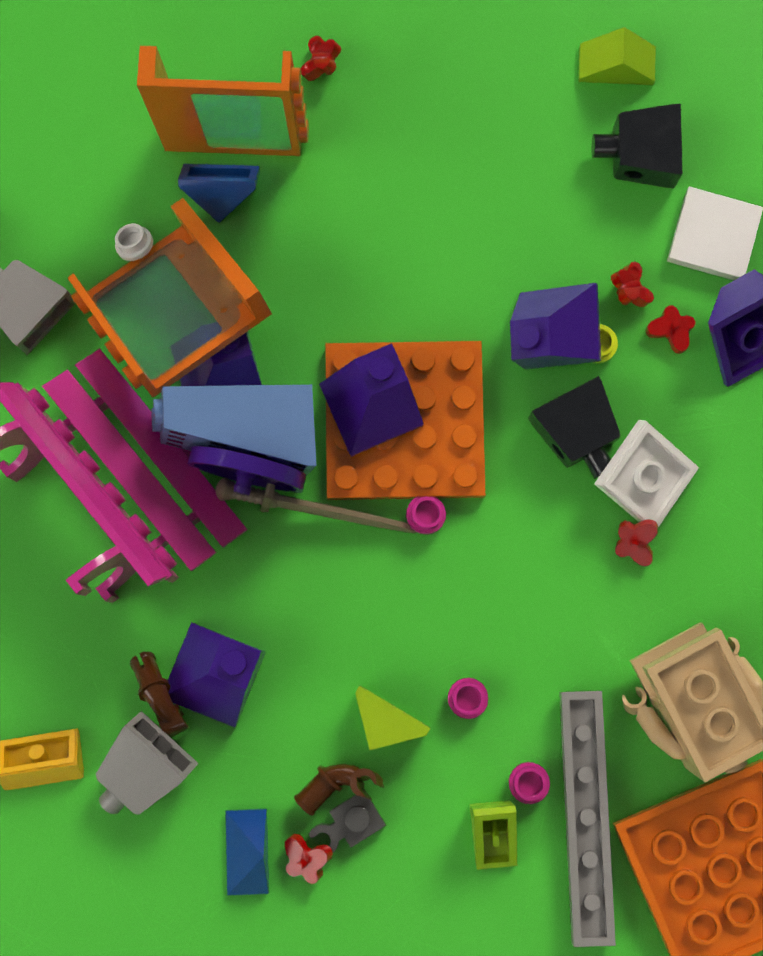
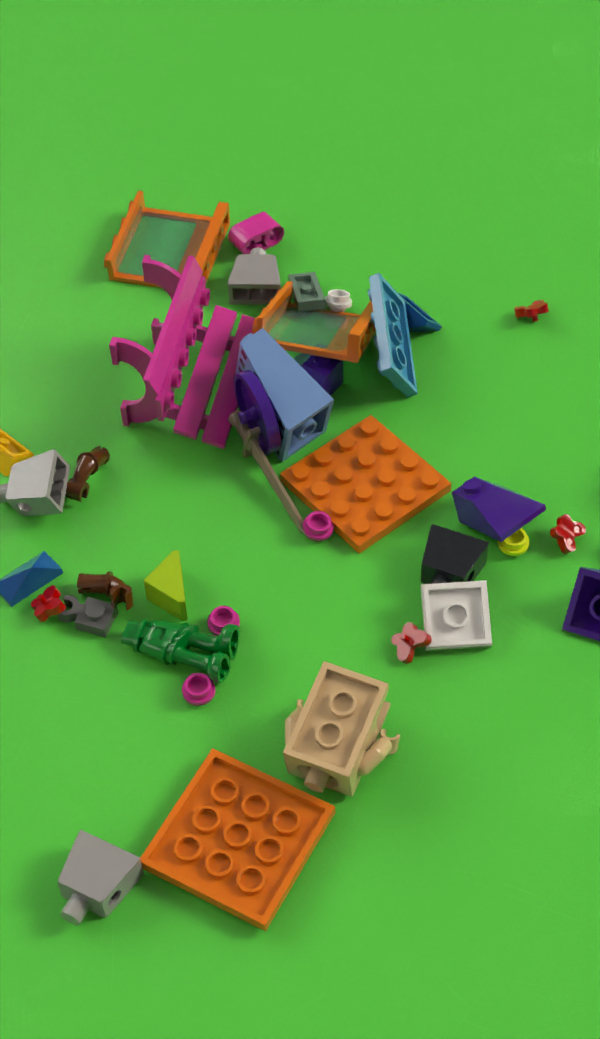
camera: 50 degrees right, 30 degrees down
(91, 264) = (307, 292): none -> sand green plate
(214, 674) = (124, 494): dark purple slope -> none
(224, 114) = (448, 271): orange panel -> none
(261, 244) = (392, 335): none -> dark azure plate
(372, 400) = (360, 446): dark purple slope -> none
(452, 772) = (171, 642): none -> green piece
(494, 834) = (149, 686): lime slope -> none
(587, 819) = (202, 734): light grey plate -> none
(672, 327) = (565, 572): red piece -> none

